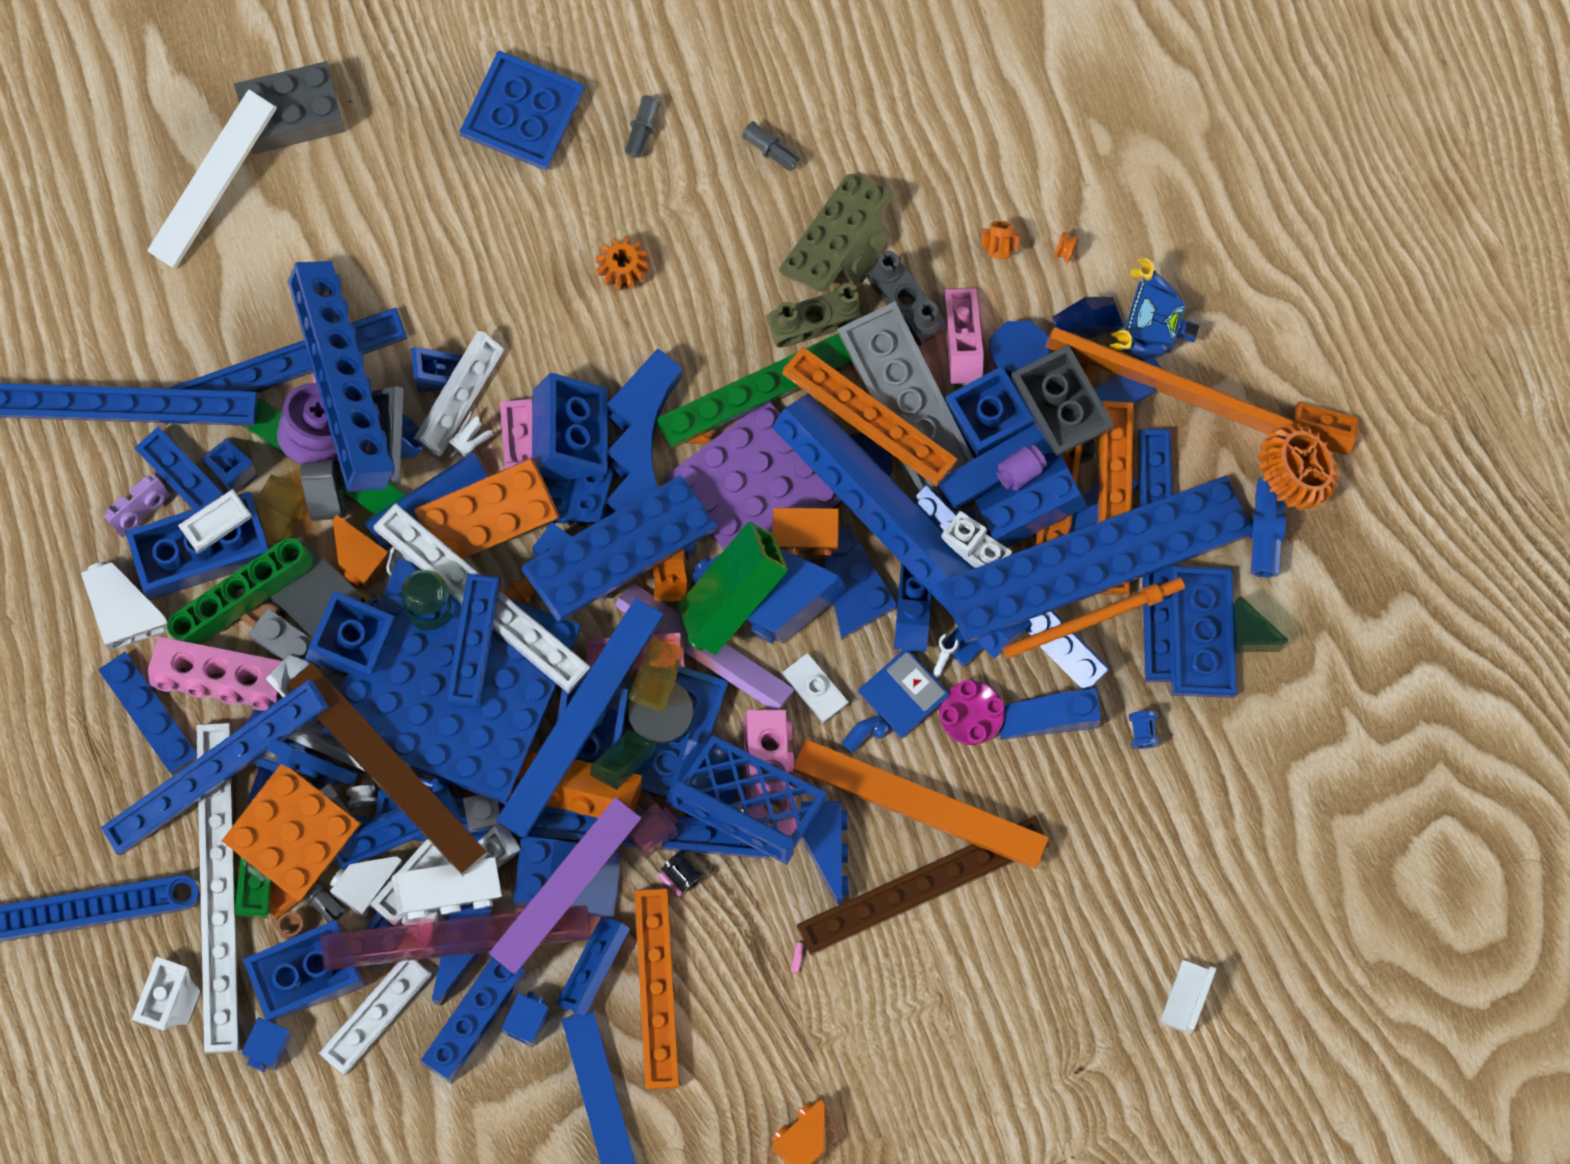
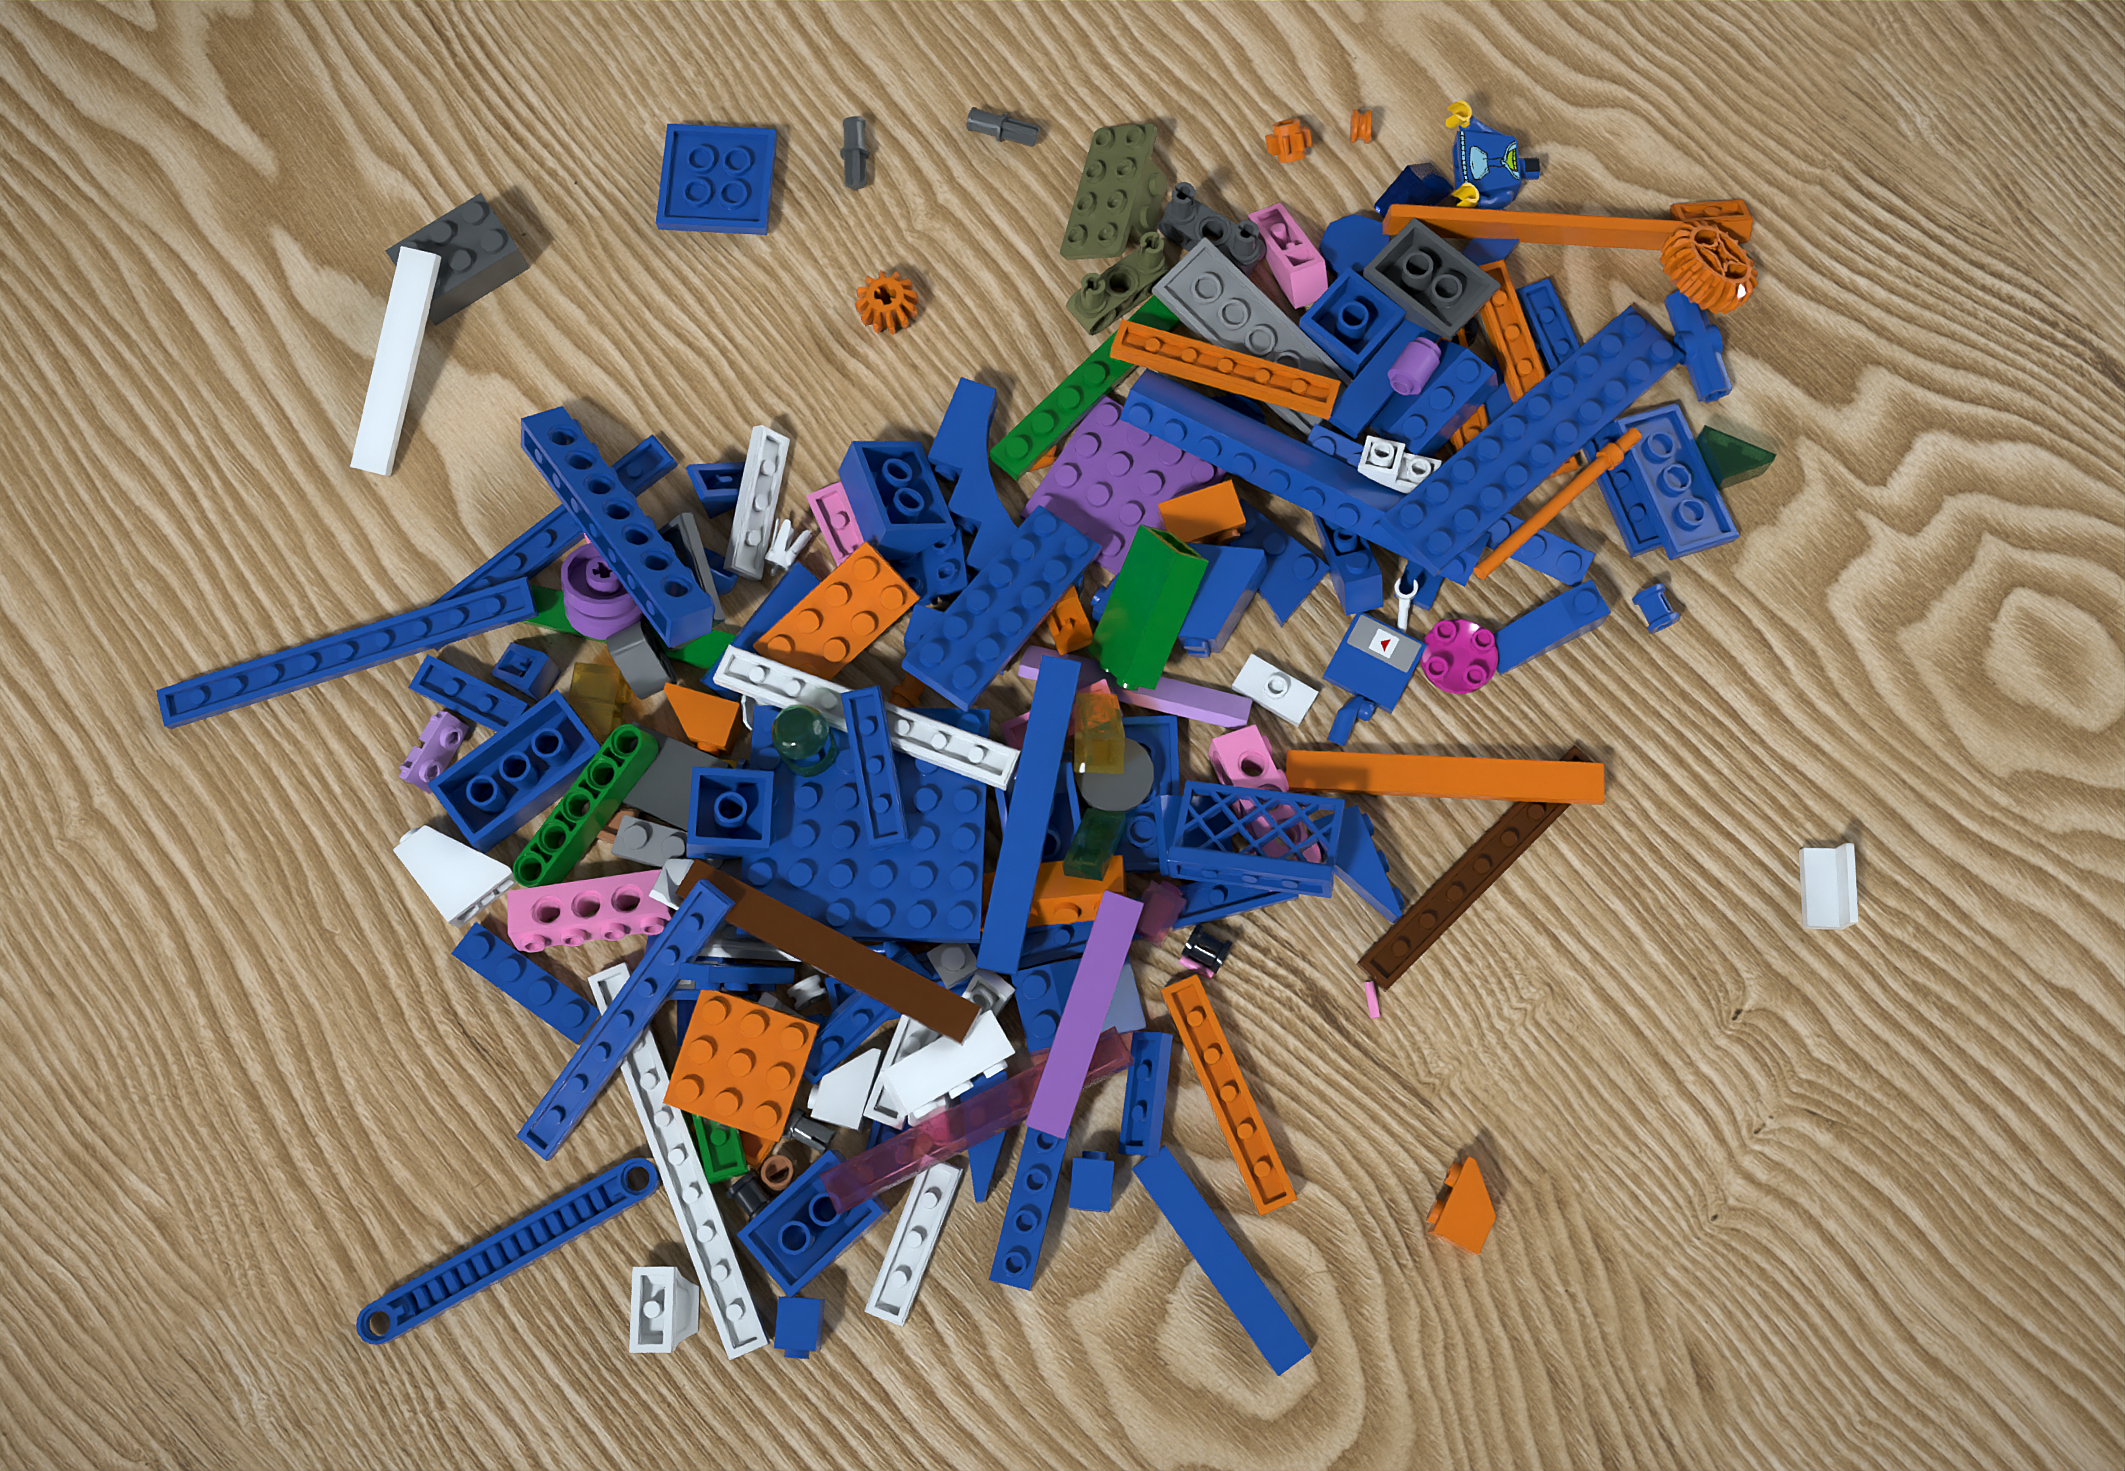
camera: 15 degrees left, 0 degrees up
(215, 521) = (528, 736): white tile -> none
(262, 933) = (750, 1195): none -> black bush

